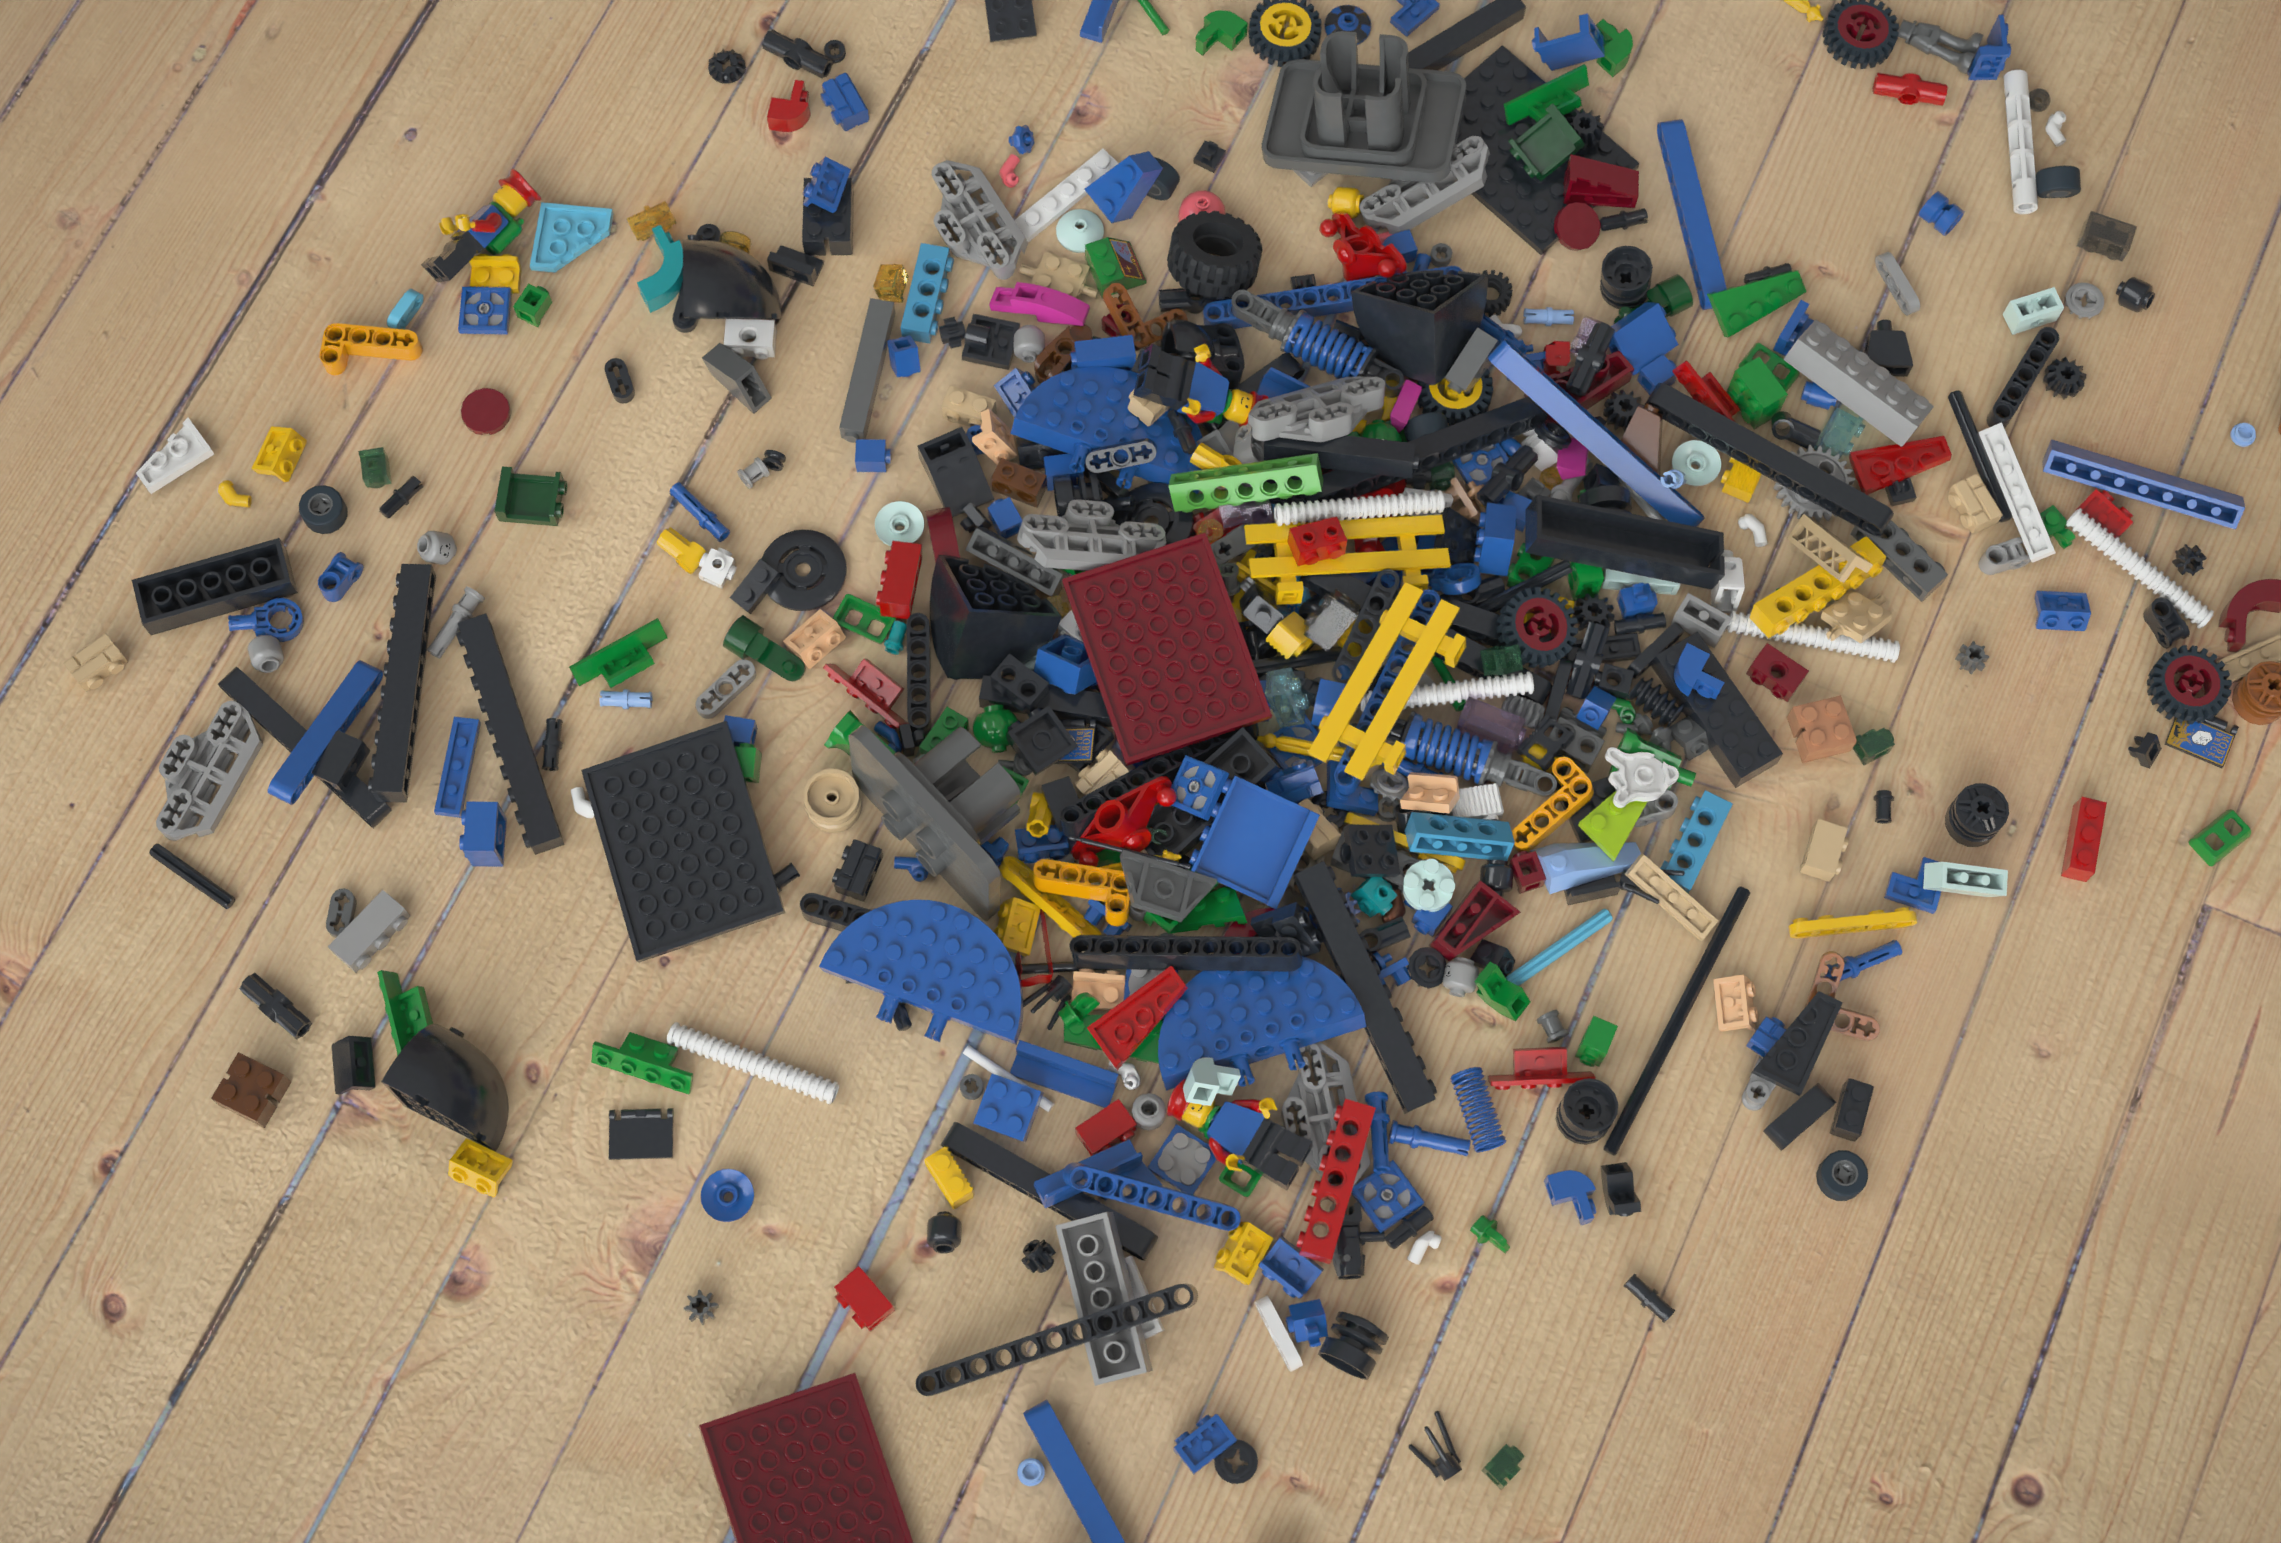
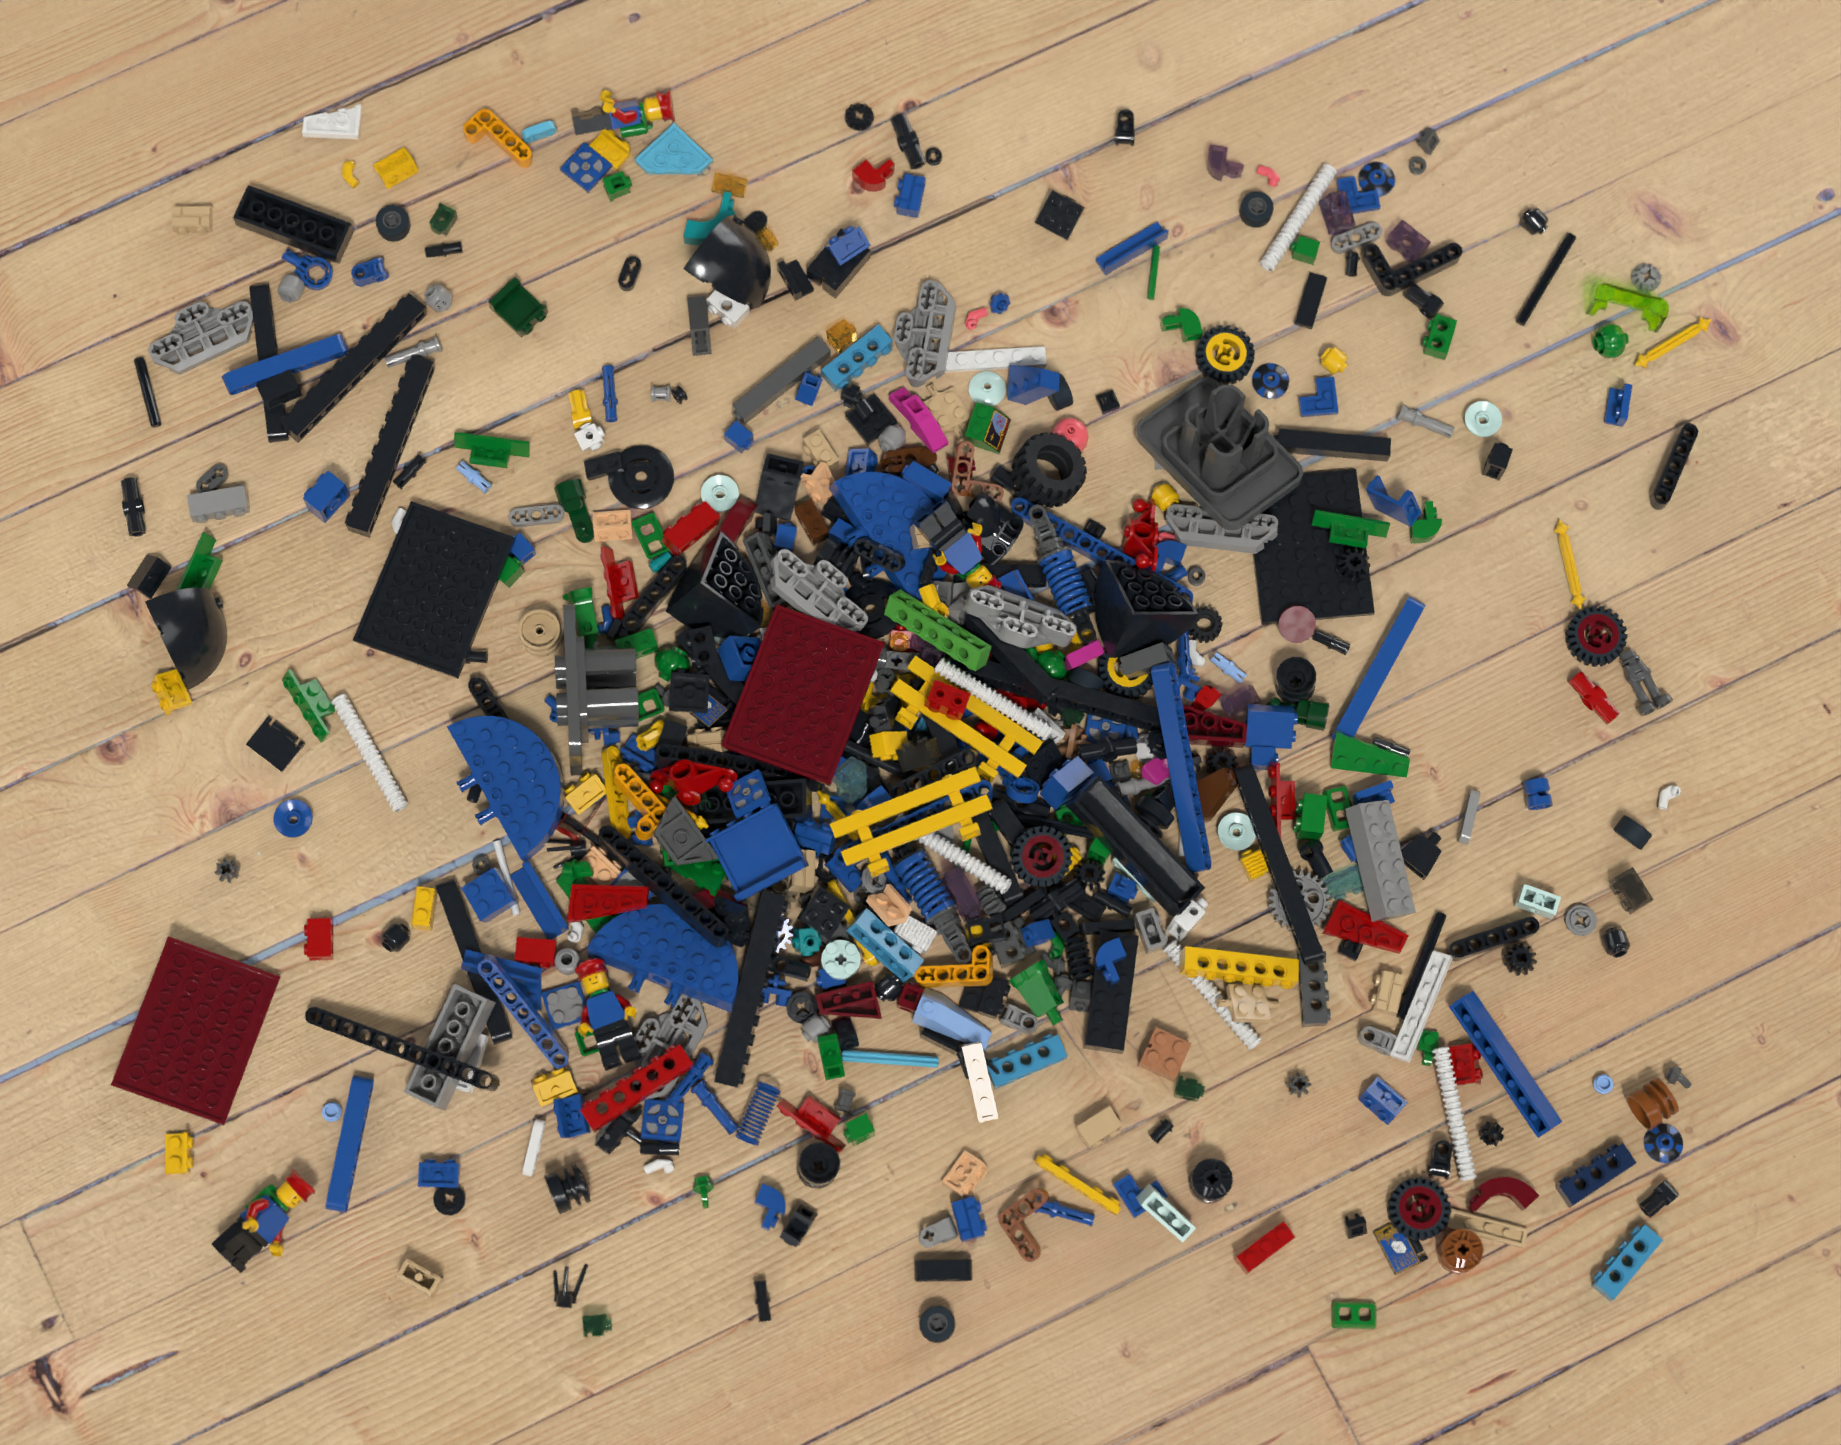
camera: 35 degrees right, 5 degrees up
(248, 1088) = (80, 544): reddish brown piece -> none
(457, 767) = (345, 443): blue plate -> none
(485, 411) = (536, 232): dark red tile -> none
(857, 870) = (521, 686): black brick -> none
(1038, 1256) = (436, 993): black gear -> none
(1119, 849) = (675, 795): black piece -> none
(1207, 1080) = (610, 968): light aqua brick -> none
(1307, 1322) = (554, 1154): blue brick -> none
(1501, 660) = (999, 859): clear green brick -> none
(1546, 144) = (1319, 556): dark green panel -> none
(1590, 359) = (1220, 715): black piece -> none
(1600, 183) = (1331, 608): dark red wedge -> none
(1611, 825) = (986, 1008): lime wing -> none
(1638, 776) = (1021, 995): white tile -> none
(1673, 479) = (1207, 830): light blue axle -> none
(1676, 1021) = (923, 1156): black axle -> none
(1758, 529) = (1239, 899): white arm -> none
(1773, 660) = (1168, 987): dark red brick -> none
(1797, 1050) = (971, 1230): black wing -> none
(1827, 542) = (1269, 945): tan fence -> none
(1851, 1109) = (977, 1291): black brick -> none
(1991, 57) = (1660, 721): blue bracket -> none
(2020, 142) = (1634, 787): white piece -> none
(2040, 95) = (1677, 765): clear smoke plate -> none

